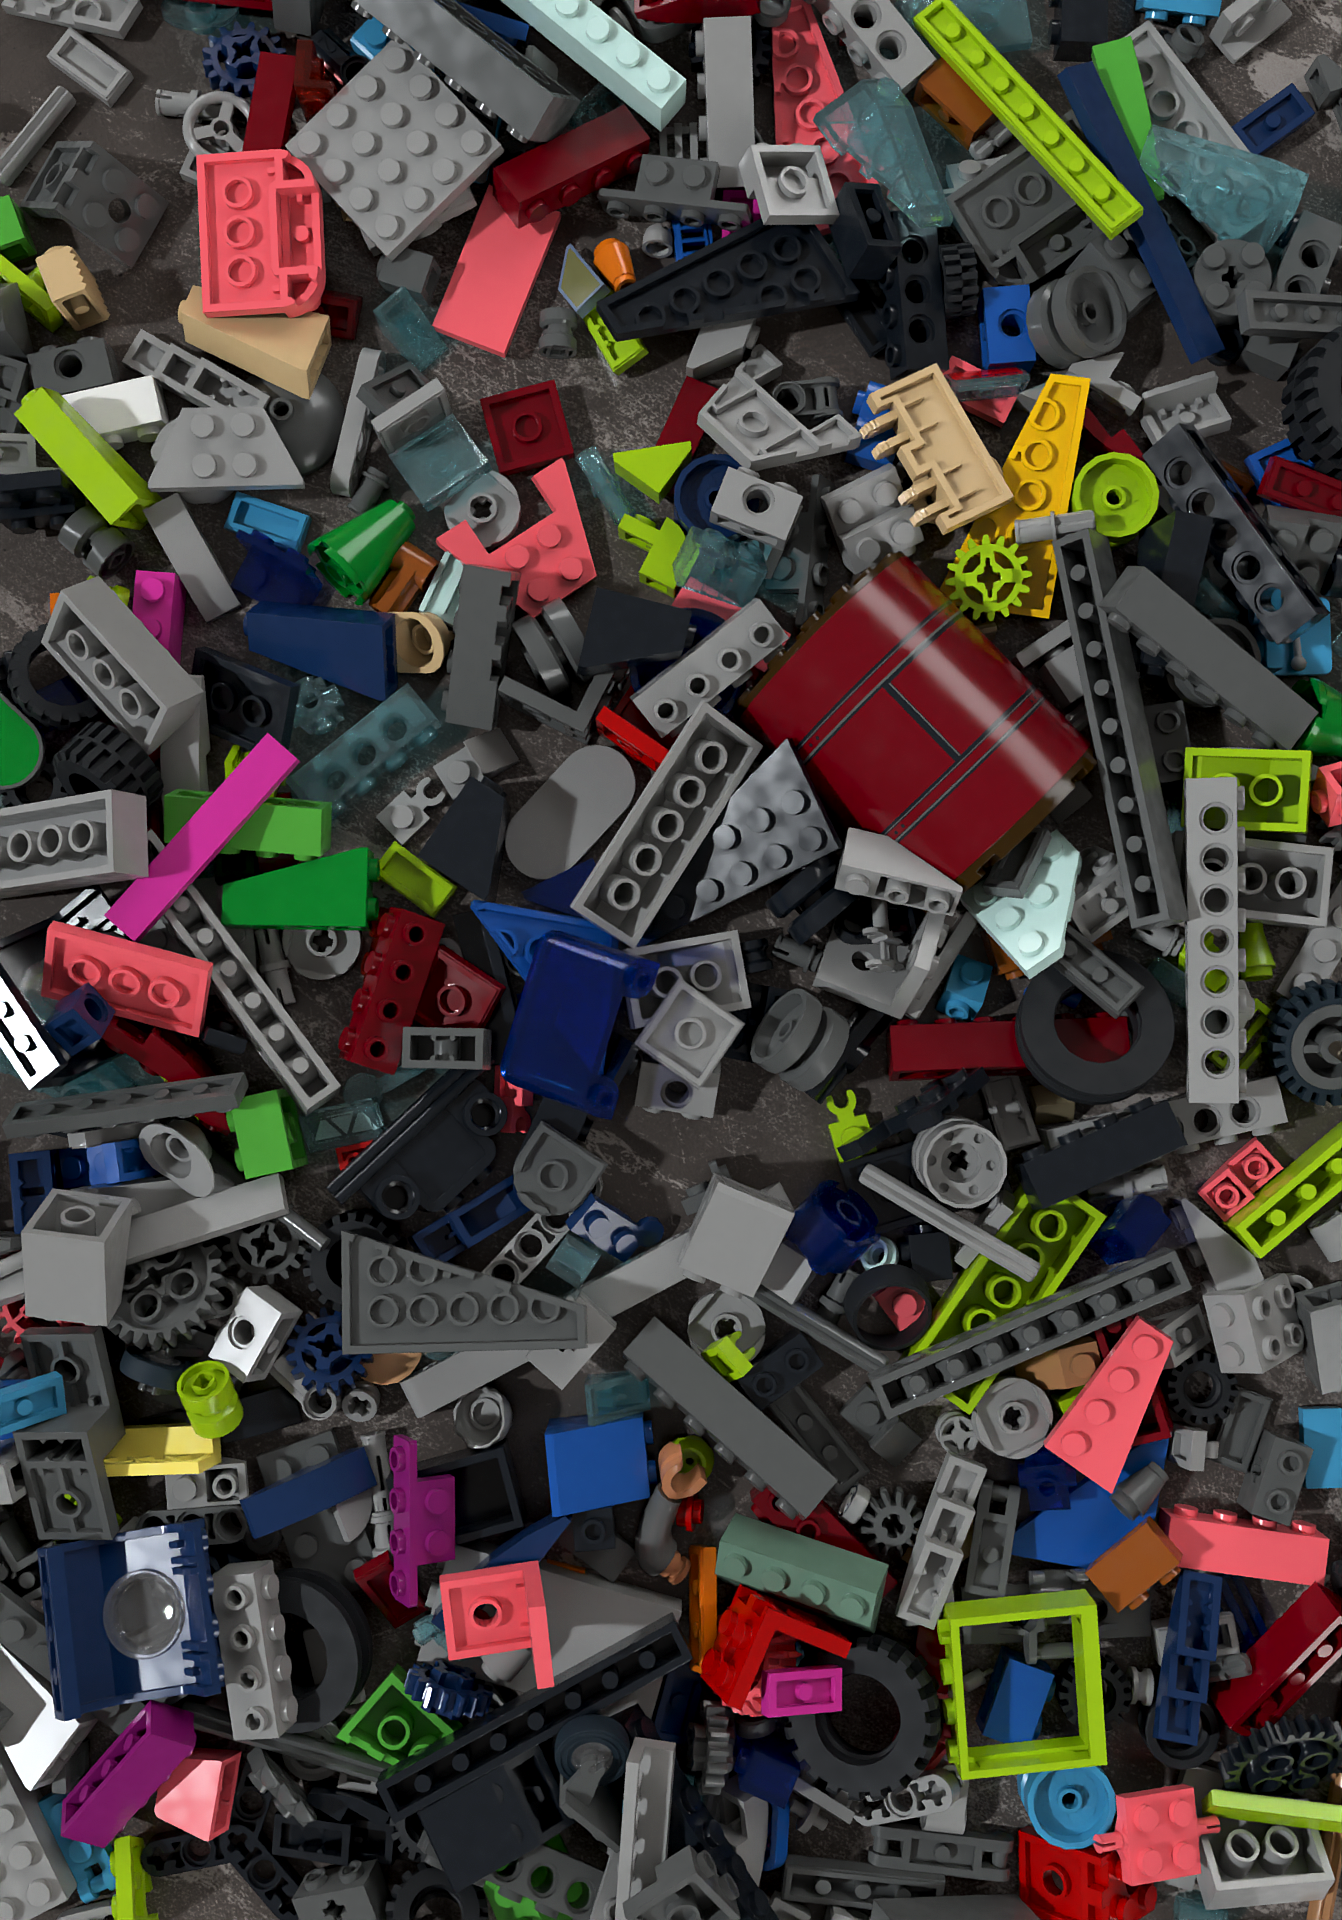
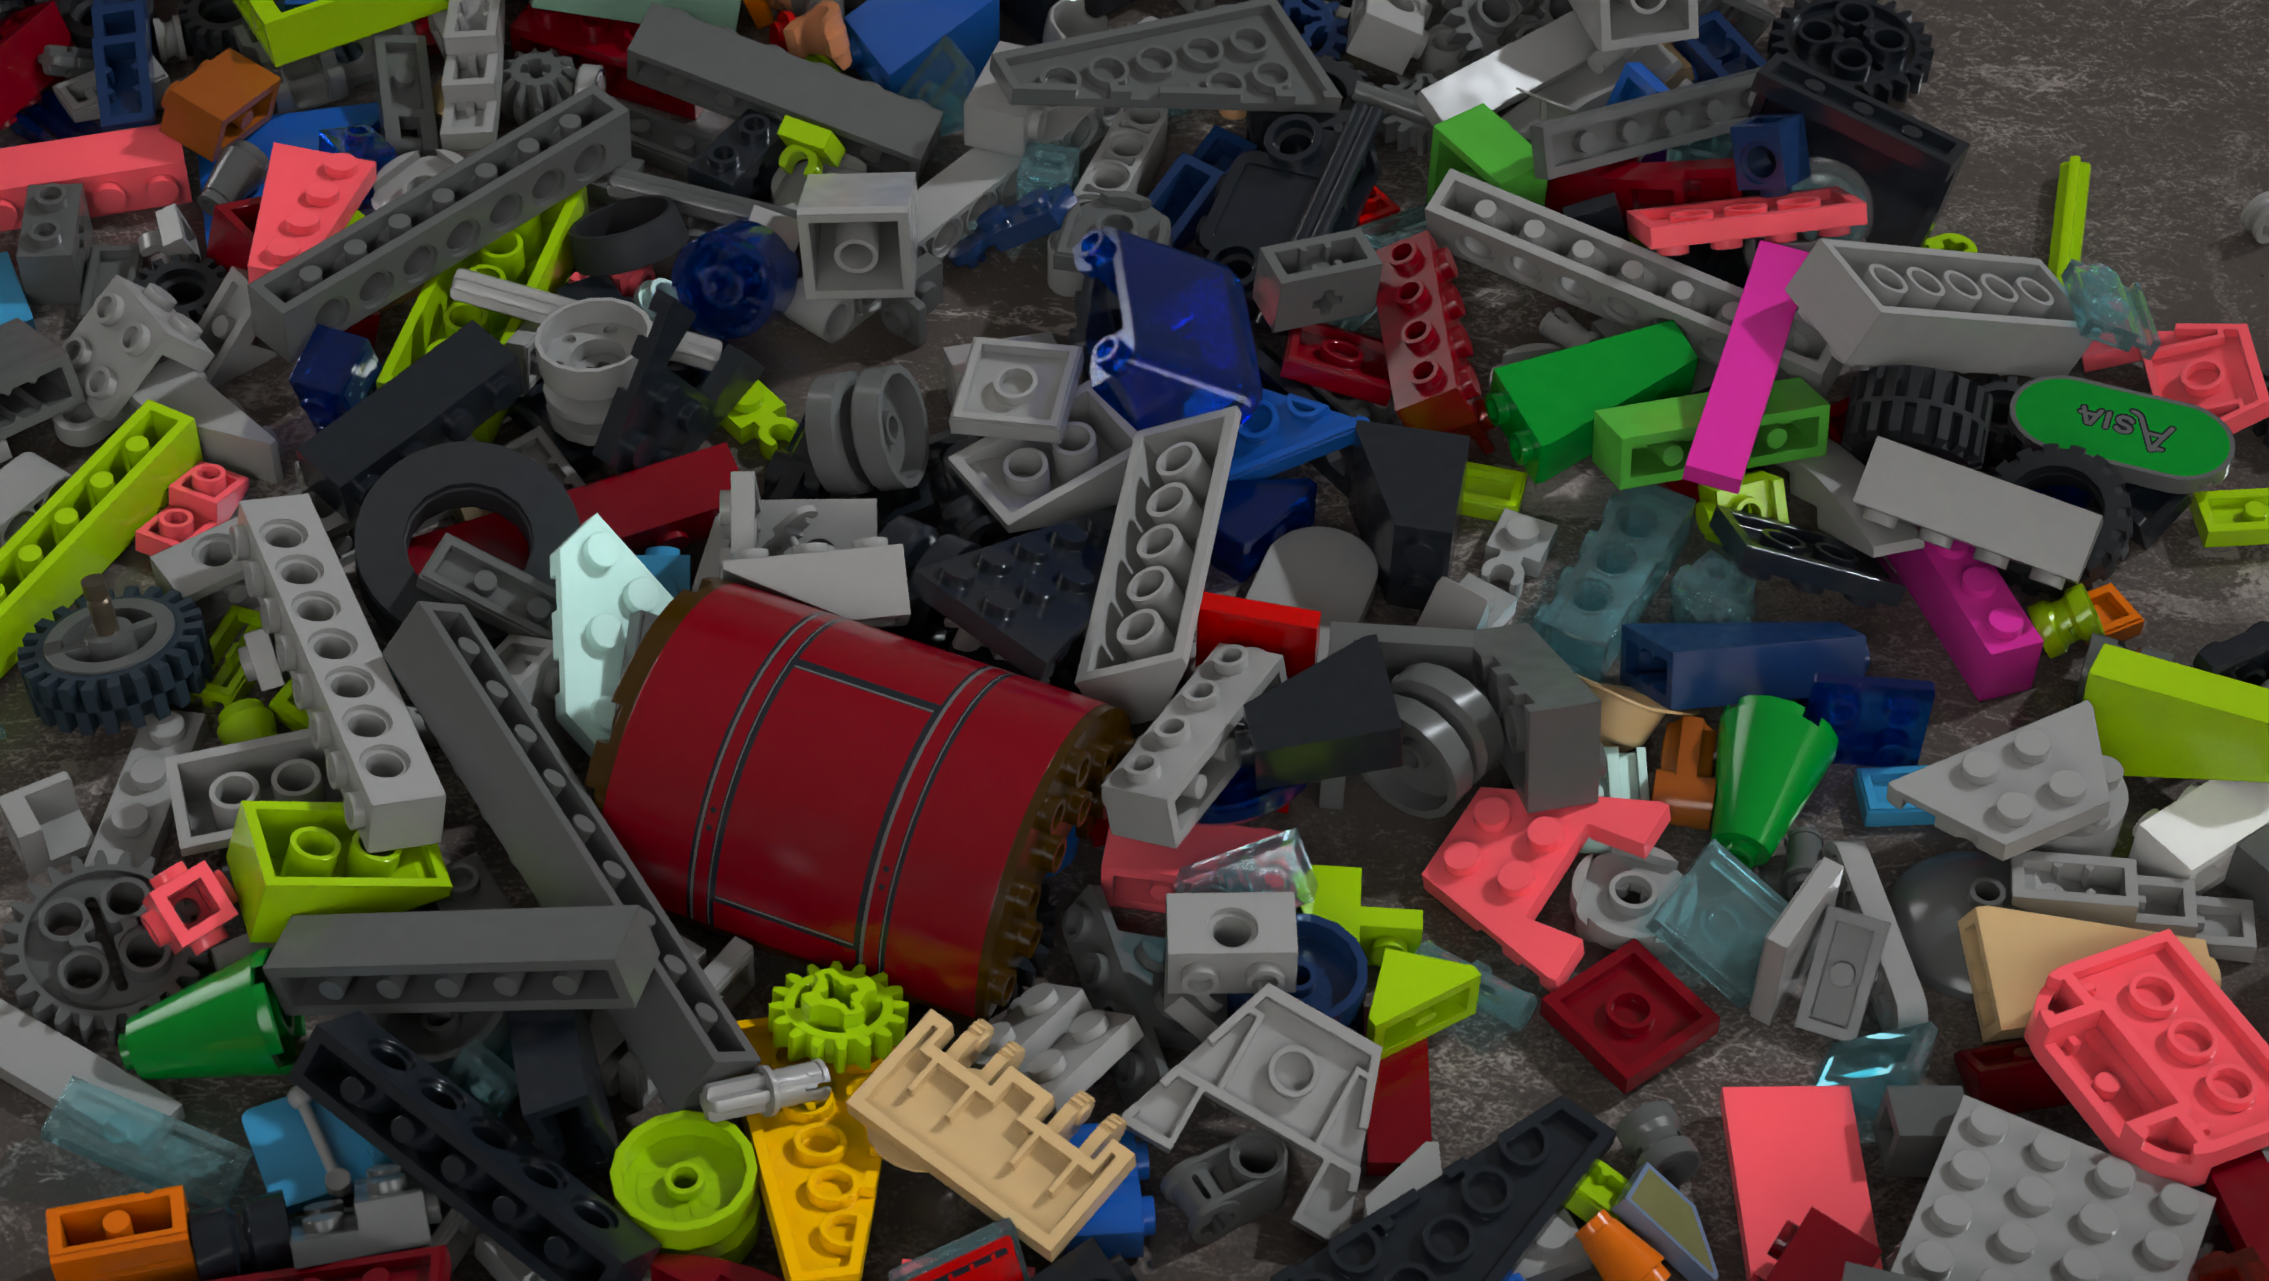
camera: 160 degrees right, 40 degrees down
(192, 557) = (1982, 703): light grey slope -> none

